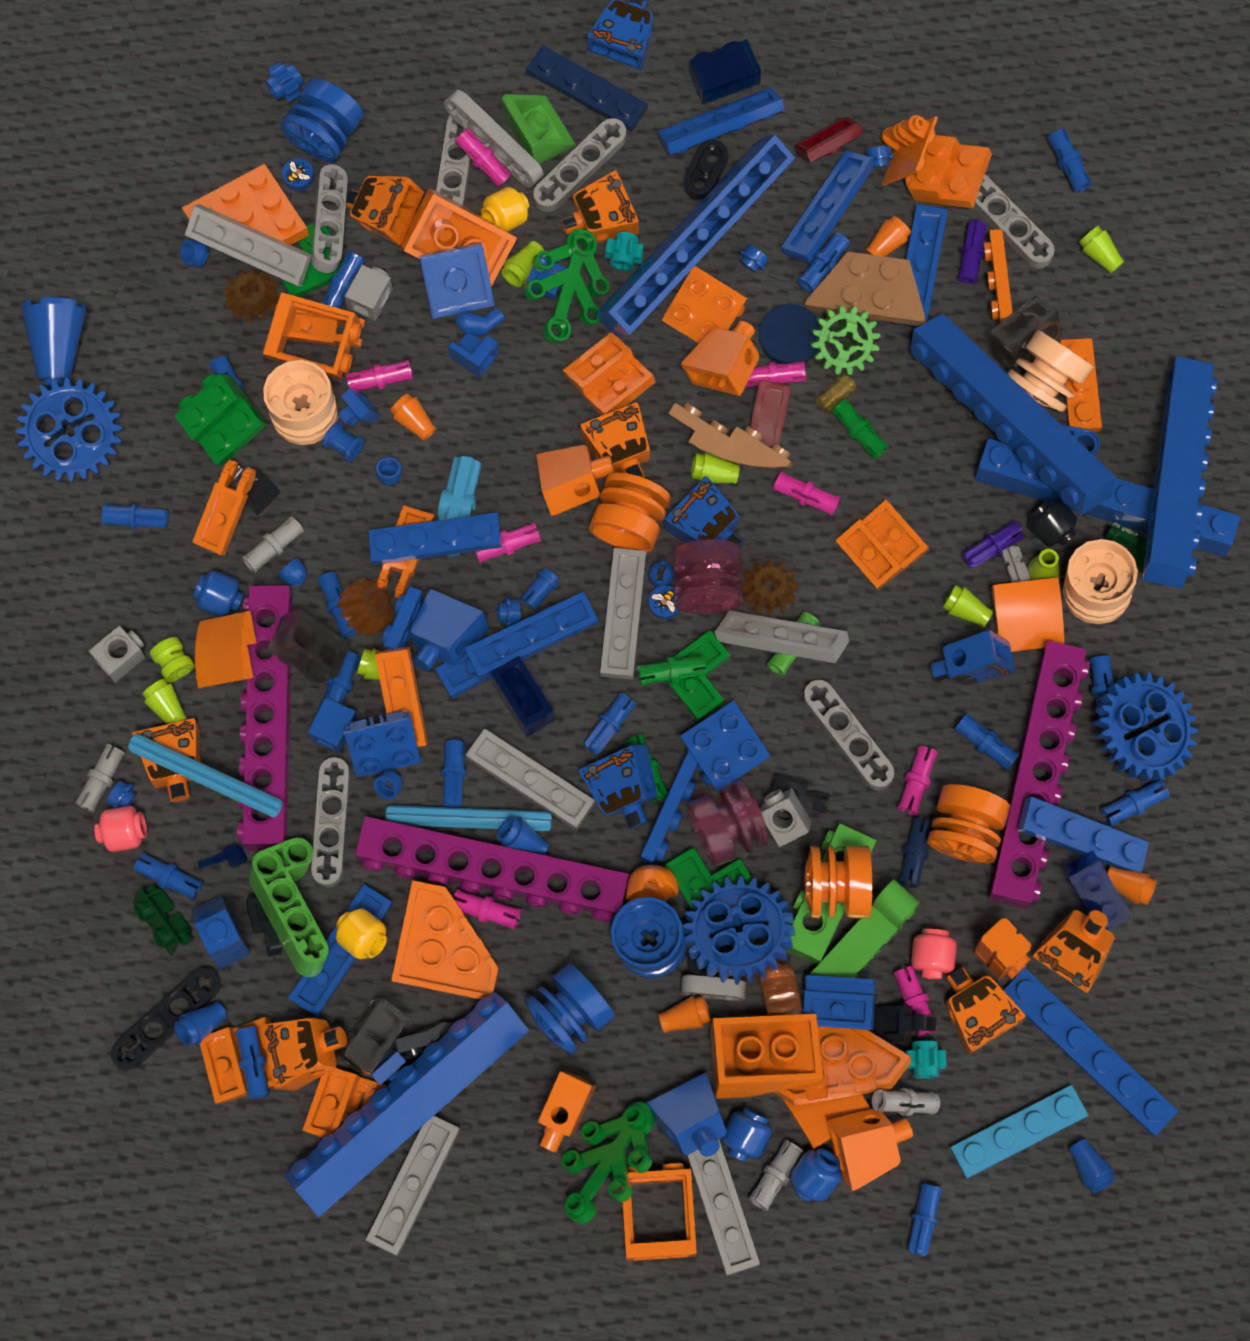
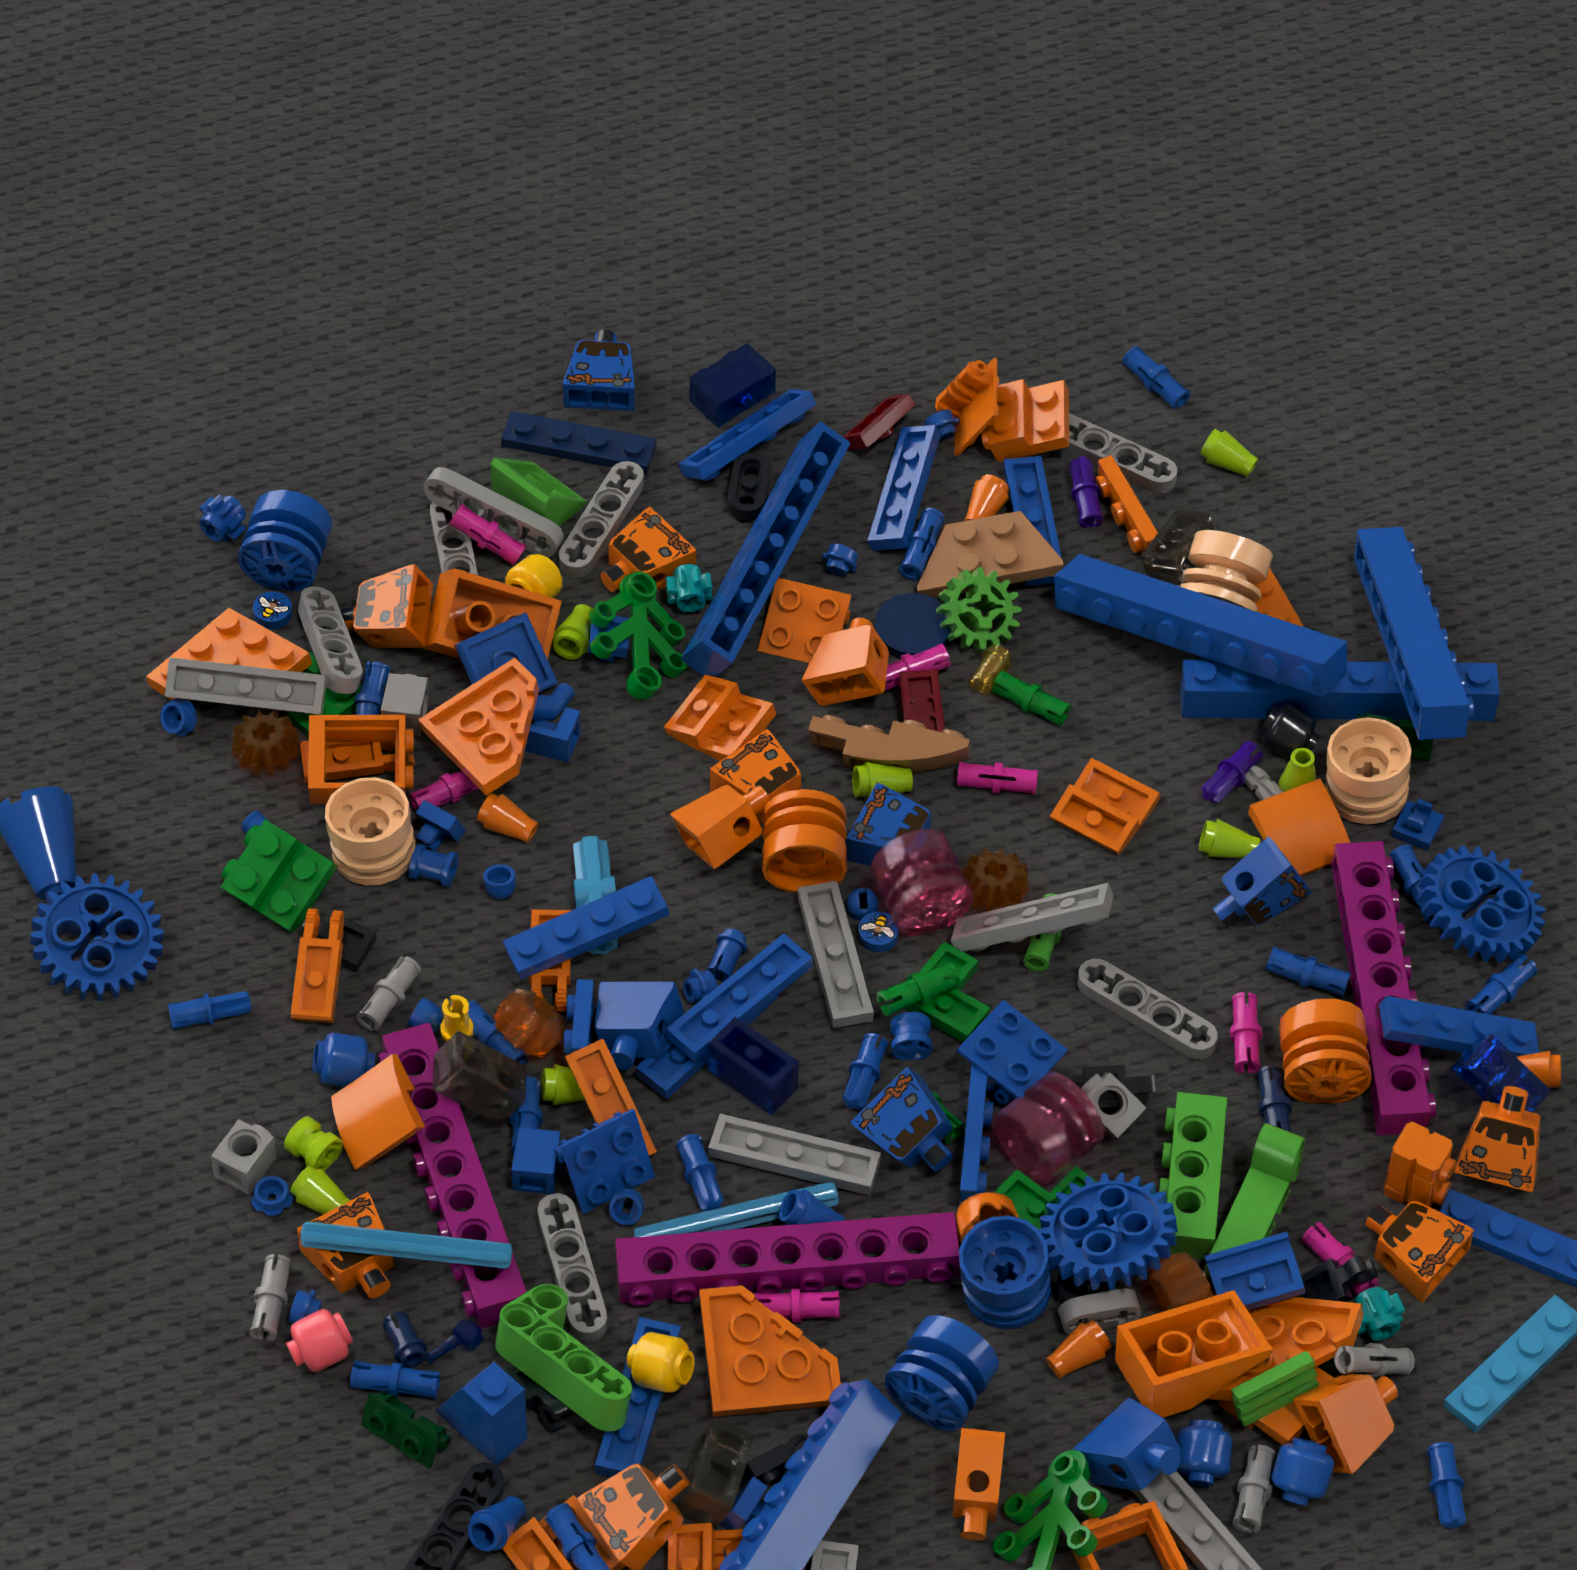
camera: 20 degrees left, 20 degrees down
(124, 685) = (267, 1187): none -> blue plate
(185, 845) = (405, 1340): none -> dark blue pin
(307, 596) = (456, 1017): none -> yellow pin
(421, 335) = (487, 725): none -> orange plate
(511, 541) = (680, 912): dark pink pin -> none
(655, 705) = (911, 1036): none -> blue wheel
(817, 1105) = (1274, 1388): none -> bright green tile
(839, 882) = (1207, 1137): orange wheel -> none
(933, 953) = (1340, 1200): coral head -> none
(1125, 636) = (1418, 824): none -> blue tile

